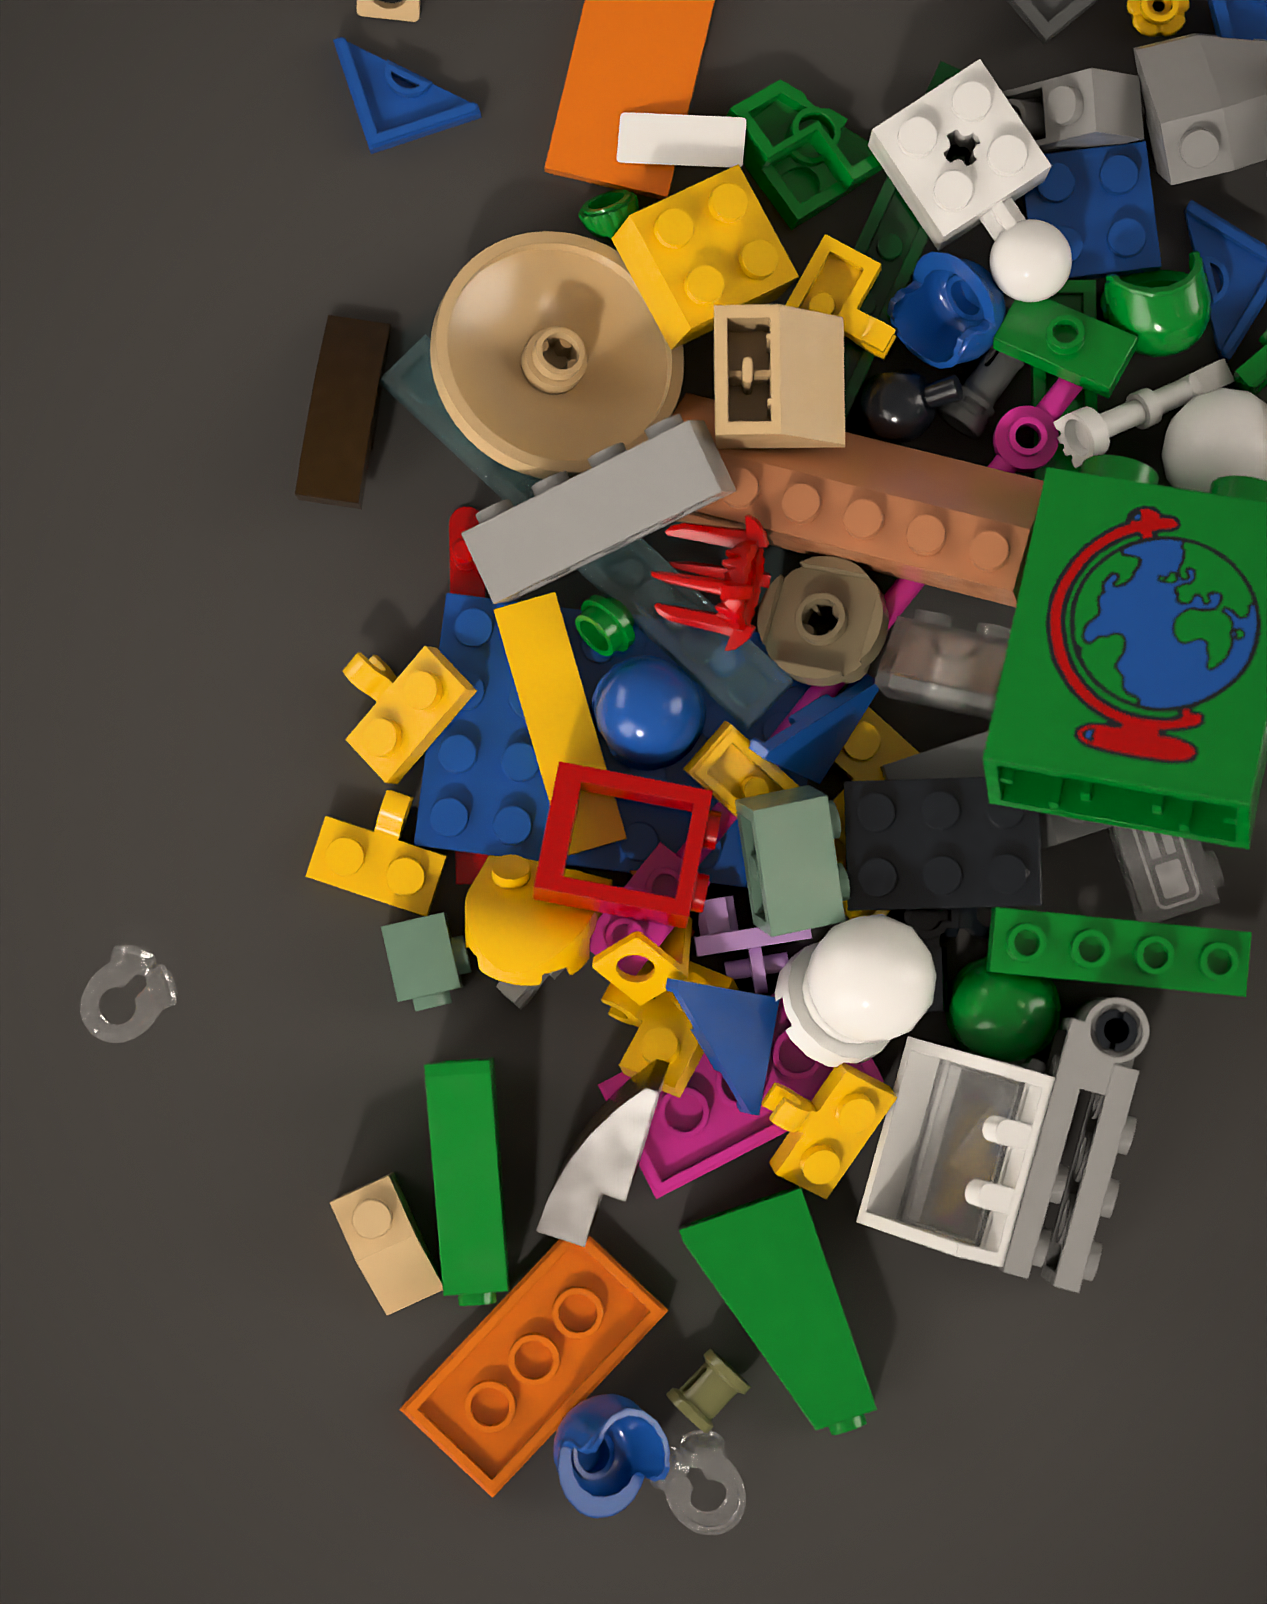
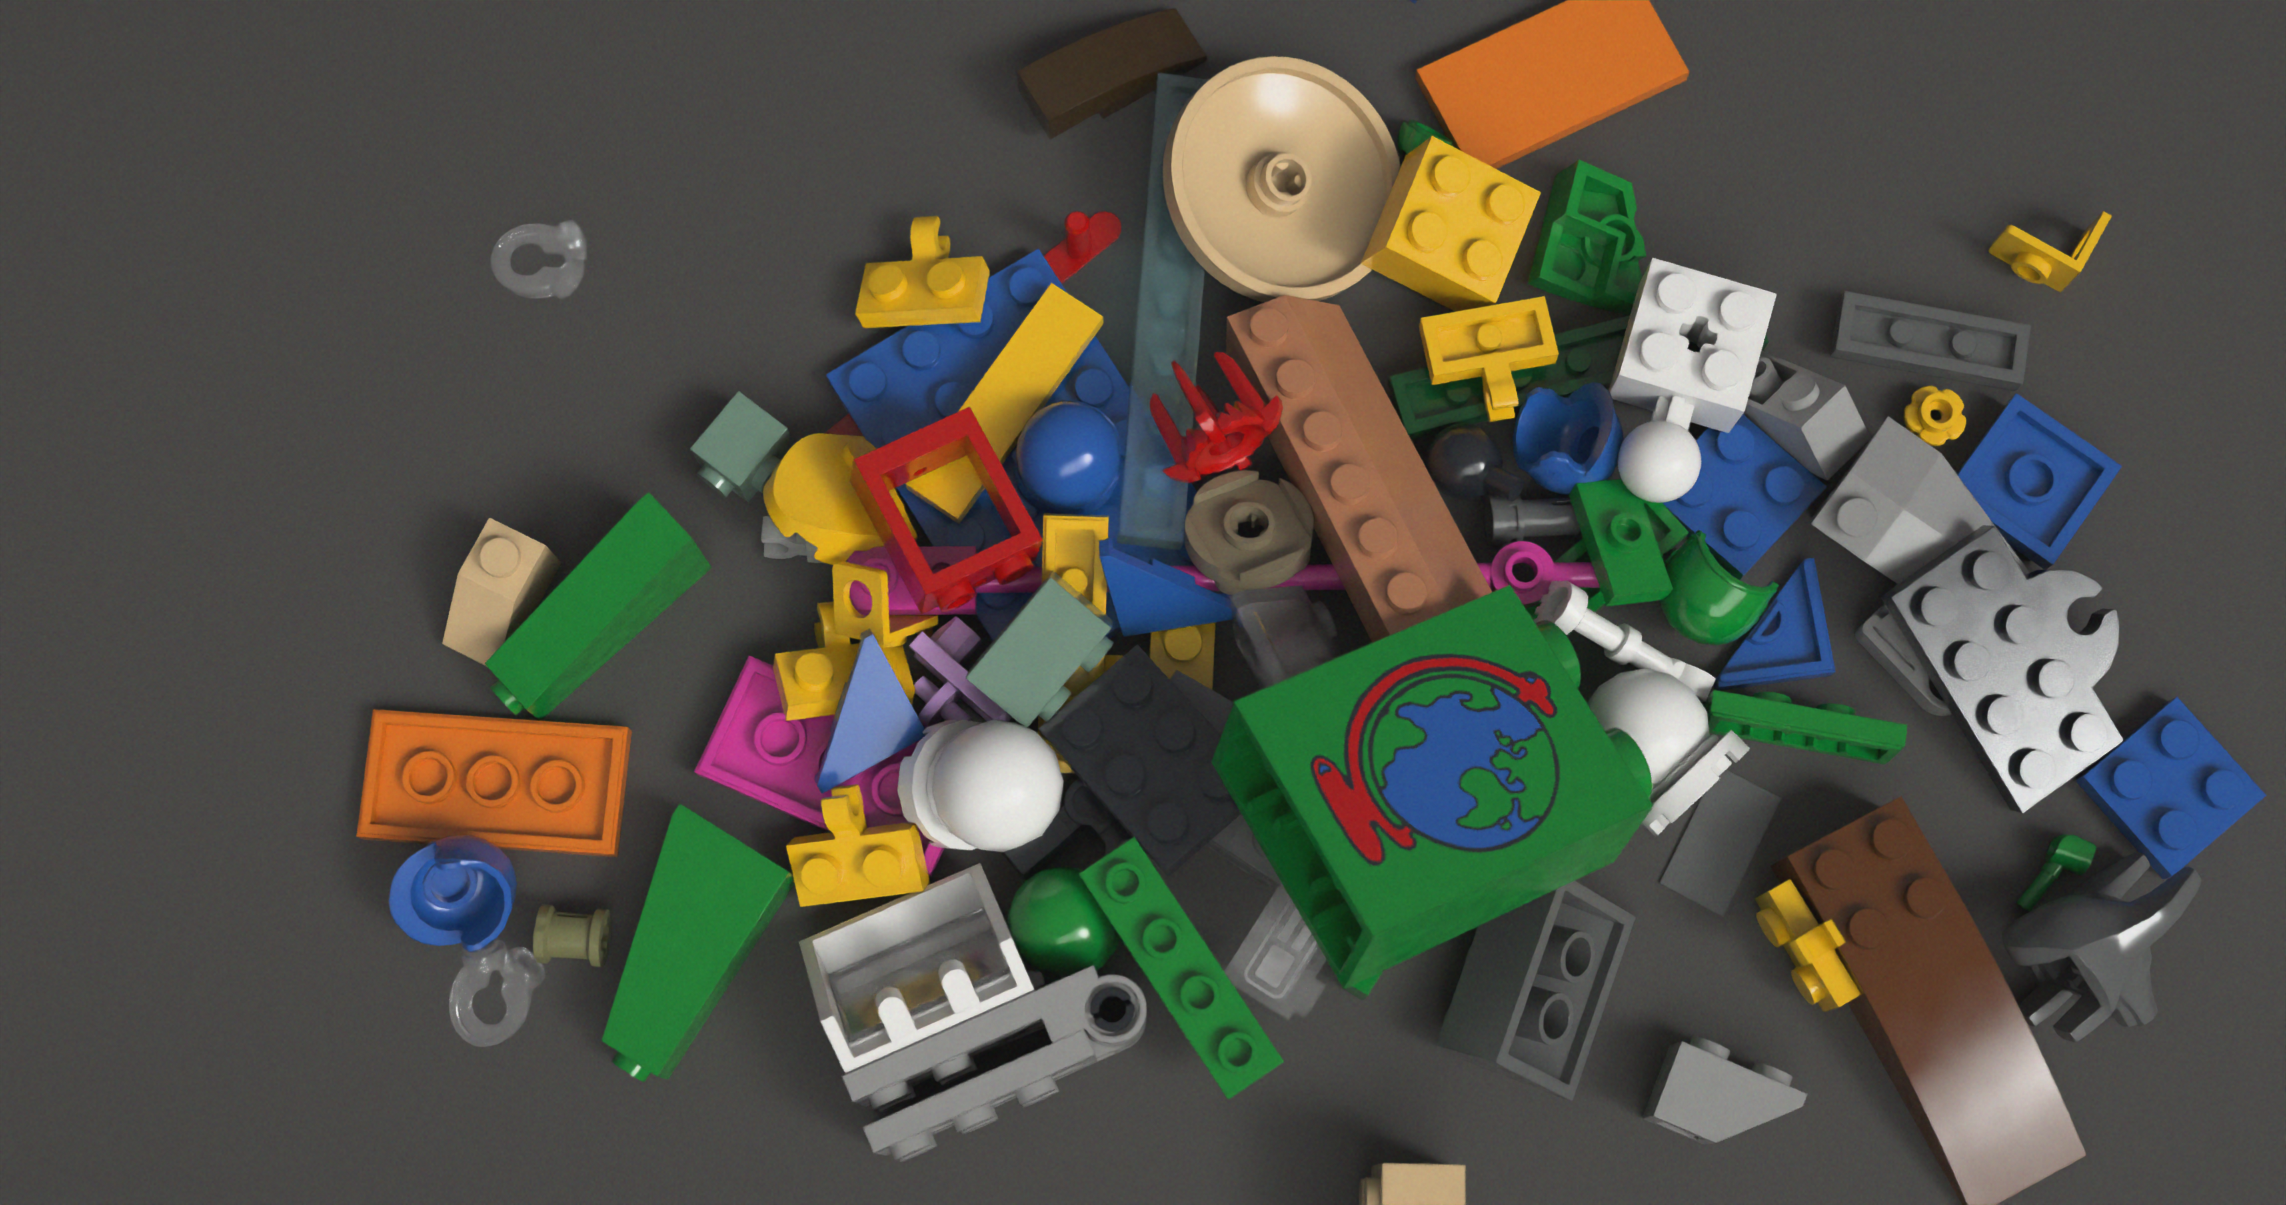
camera: 50 degrees right, 10 degrees down
(377, 860) = (794, 361): yellow plate -> none
(599, 509) = (1190, 287): light grey brick -> none
(603, 1157) = (689, 700): slope -> none
(605, 625) = (1108, 372): green plate -> none
(681, 139) = (1523, 145): white sticker -> none
(778, 377) = (1402, 336): tan slope -> none

